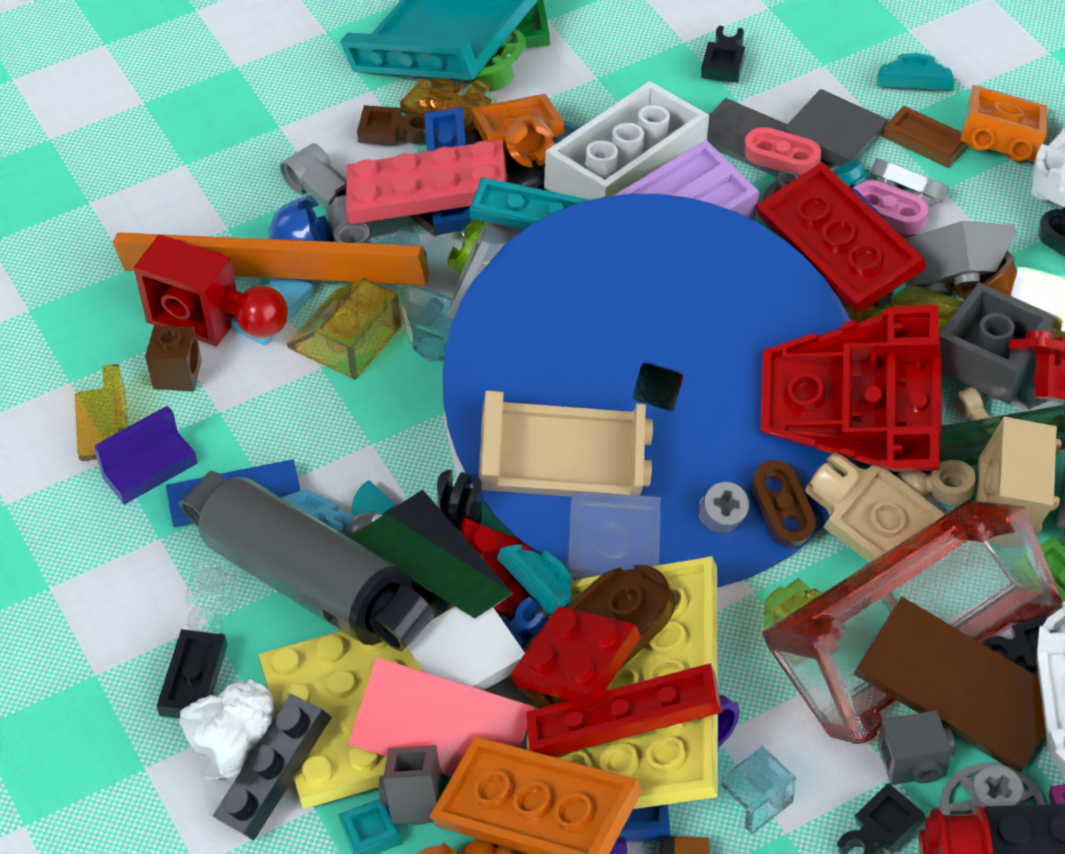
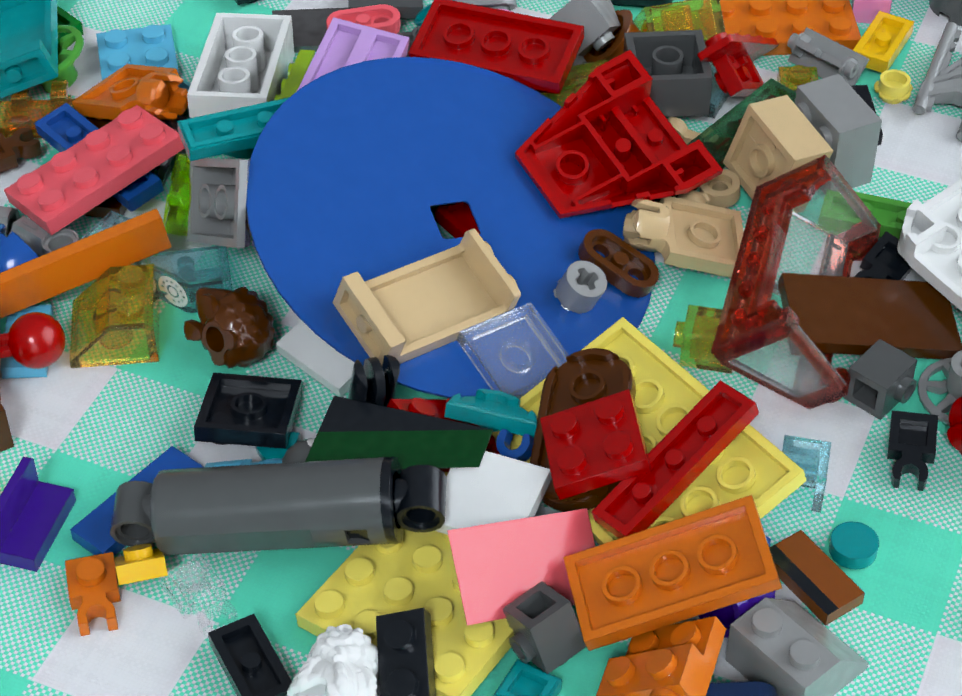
camera: 40 degrees left, 5 degrees down
(143, 541) = (93, 589): none -> orange plate
(183, 544) = (140, 564): none -> yellow plate
(371, 462) = (248, 410): none -> black plate
(414, 381) = (232, 326): none -> reddish brown animal
(577, 86) = (137, 46): none -> medium azure plate

